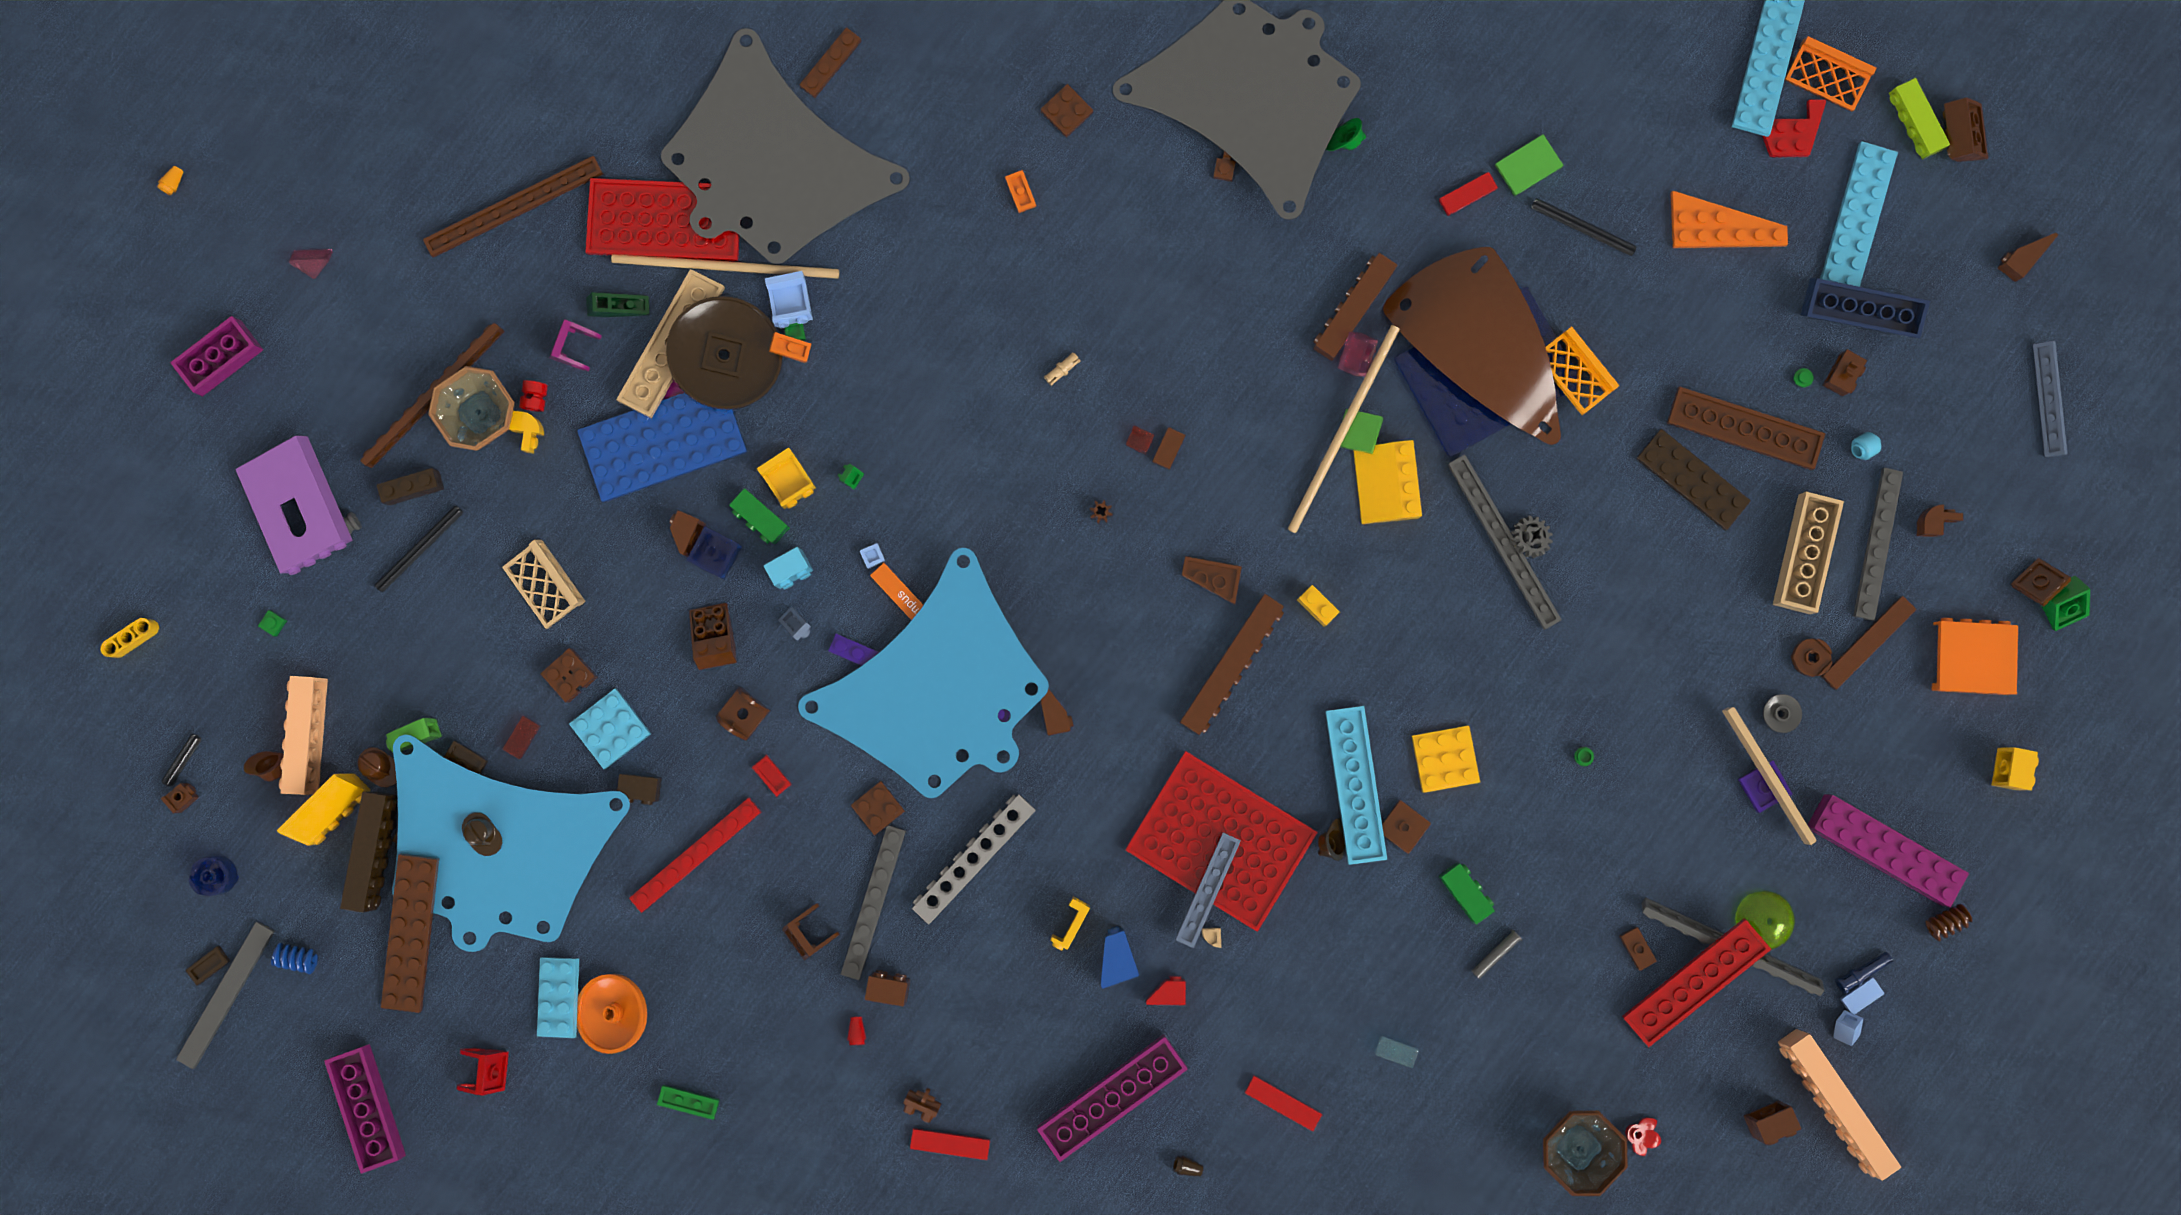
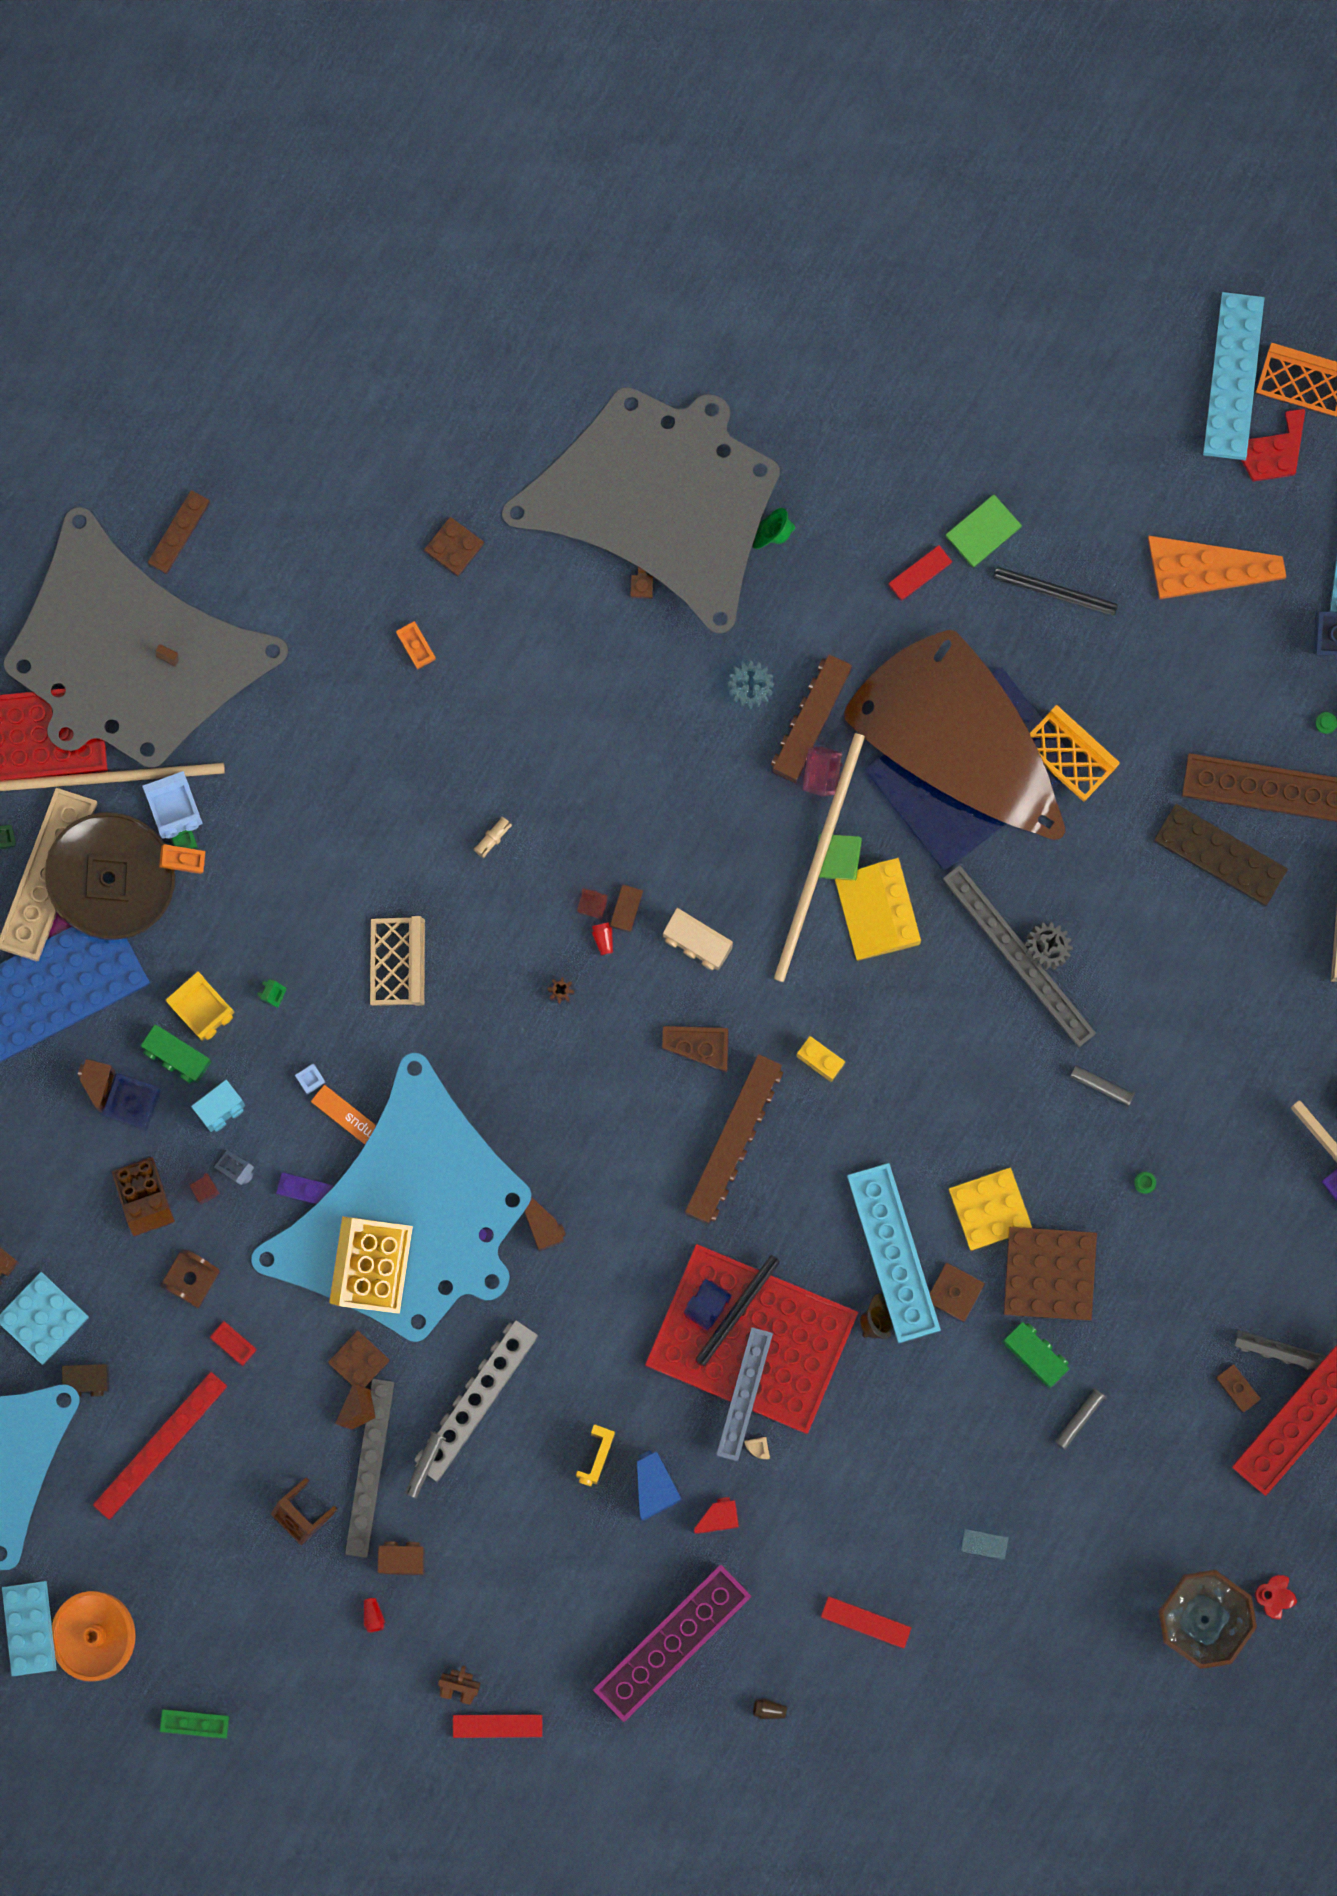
camera: 10 degrees left, 5 degrees down
(766, 638) = (204, 1189): none -> clear red panel
(803, 167) = (167, 655): none -> reddish brown tile
(869, 849) = (357, 1408): none -> reddish brown slope
(899, 726) = (370, 1265): none -> yellow slope
(920, 909) = (424, 1464): none -> dark grey pin
(979, 465) = (416, 961): none -> tan fence
(1145, 471) = (603, 937): none -> red cone
(1188, 808) = (707, 1304): none -> clear blue brick
(1212, 815) = (737, 1310): none -> black axle
(1226, 485) = (697, 940): none -> tan slope
(1296, 275) = (742, 676): none -> clear light blue gear
(1489, 823) = (1050, 1273): none -> reddish brown plate
(1560, 666) = (1102, 1086): none -> dark grey pin

